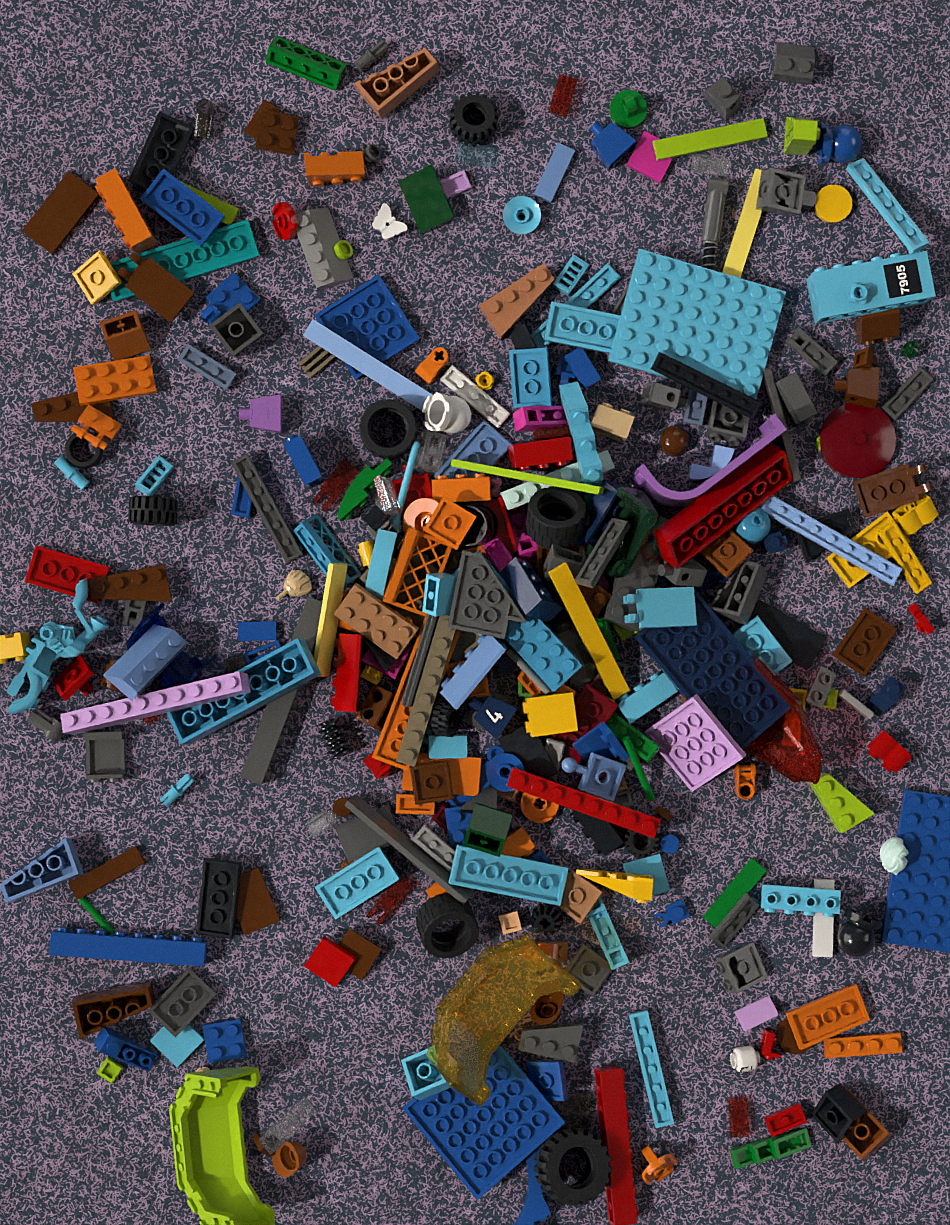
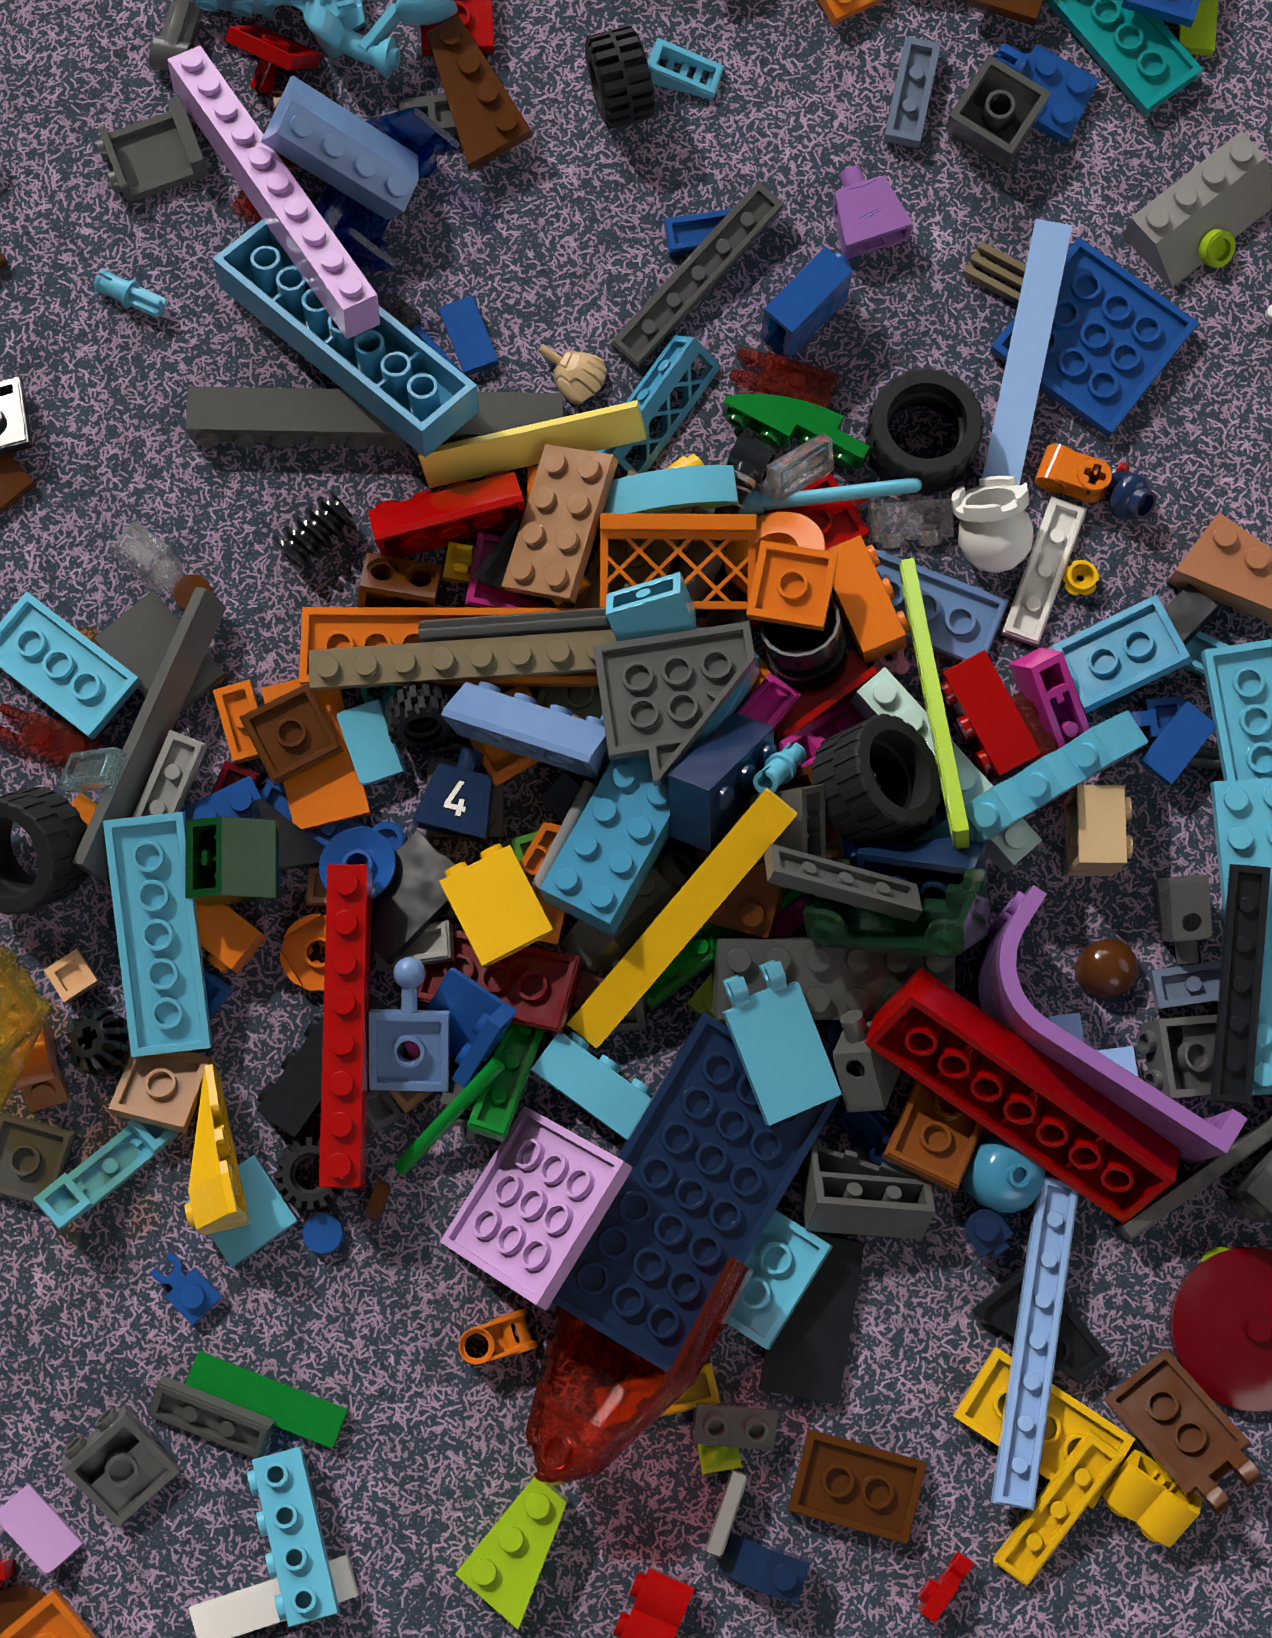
camera: 75 degrees right, 10 degrees down
(285, 221) = (1224, 130): red tile -> none
(377, 767) = (287, 632): red bracket -> none
(419, 882) = (91, 770): none -> clear light blue tile
(453, 341) = (1130, 494): none -> dark blue animal
(536, 561) = (780, 767): none -> medium azure pin

